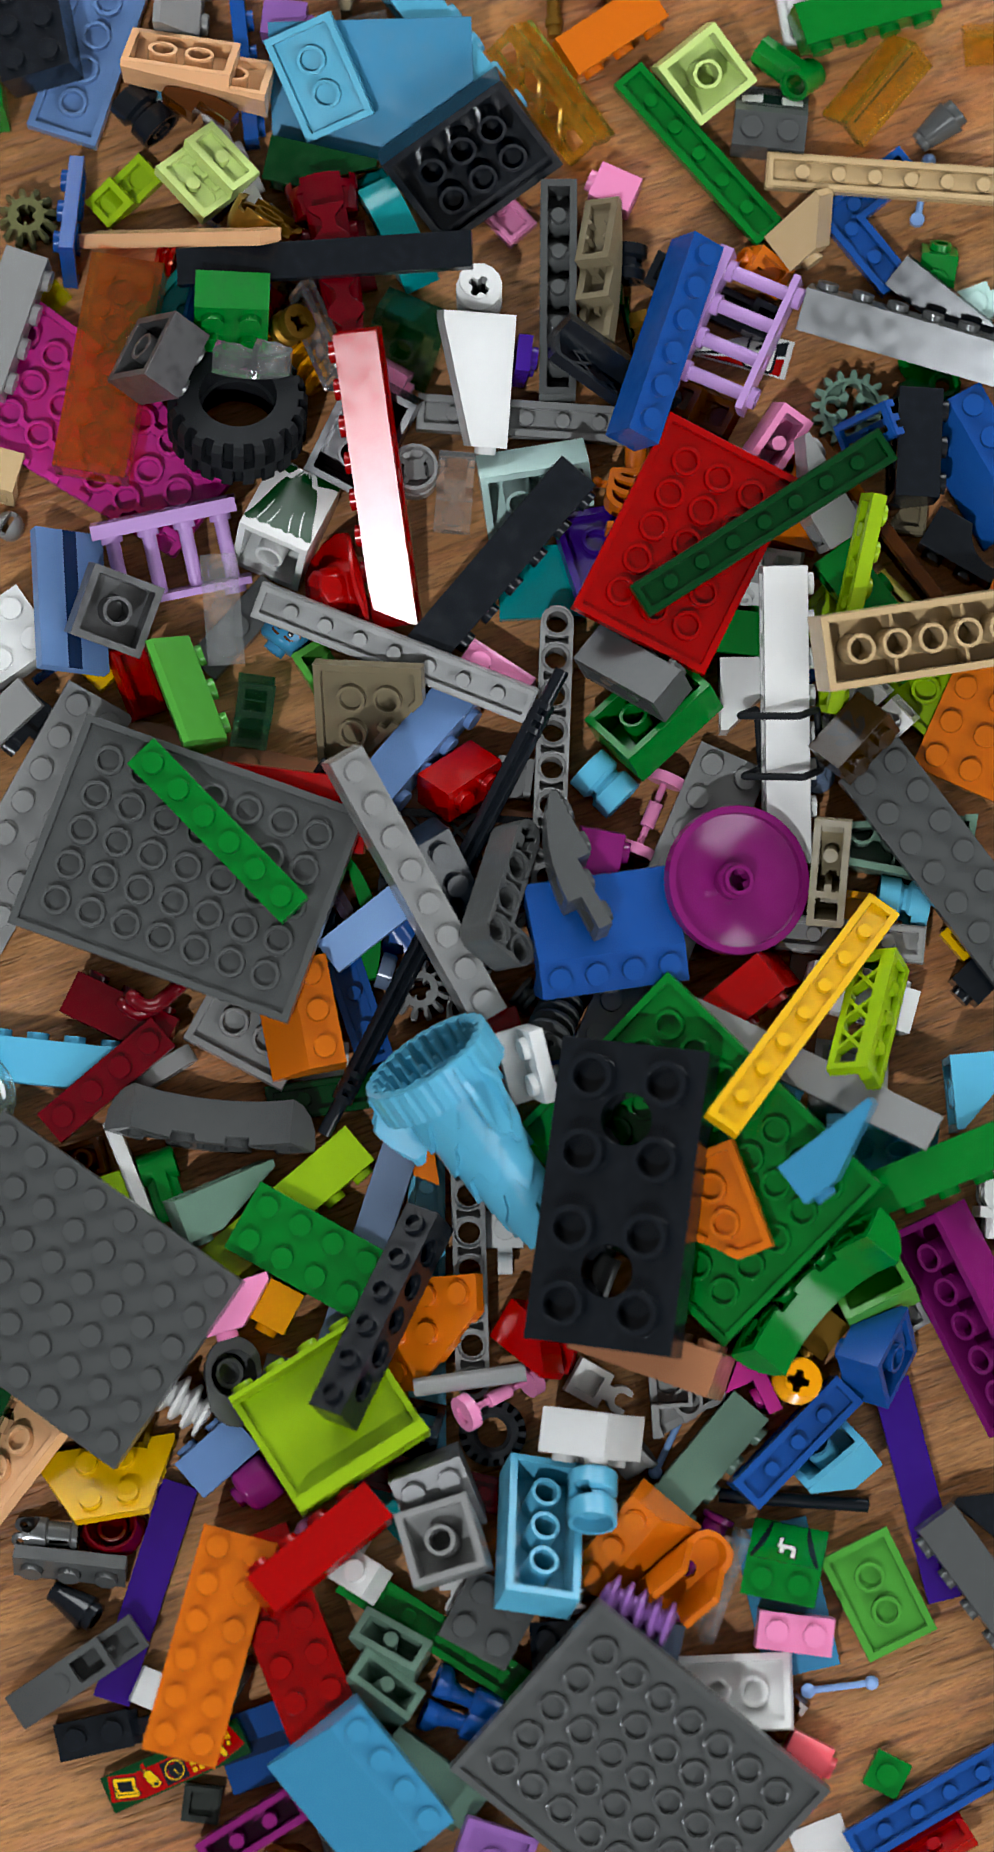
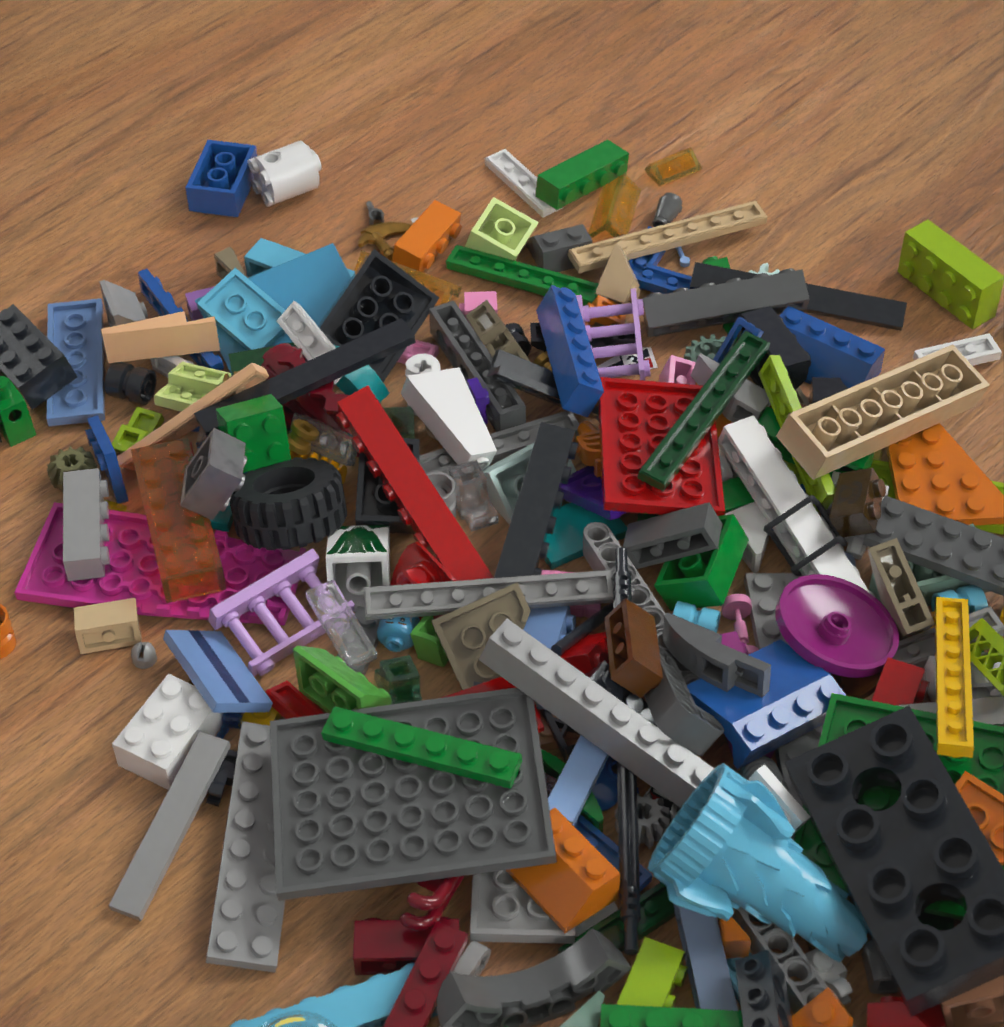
camera: 25 degrees left, 35 degrees down
(114, 609) = (257, 647): flat silver brick -> none
(191, 103) = (164, 351): reddish brown slope -> none
(264, 361) = (283, 457): clear slope -> none
(369, 172) = (304, 332): none -> white tile
(386, 971) = (610, 818): sand blue tile -> none
(468, 744) = (582, 630): none -> black bar
(489, 823) = (633, 648): none -> reddish brown brick
(796, 76) = (550, 216): green piece -> none

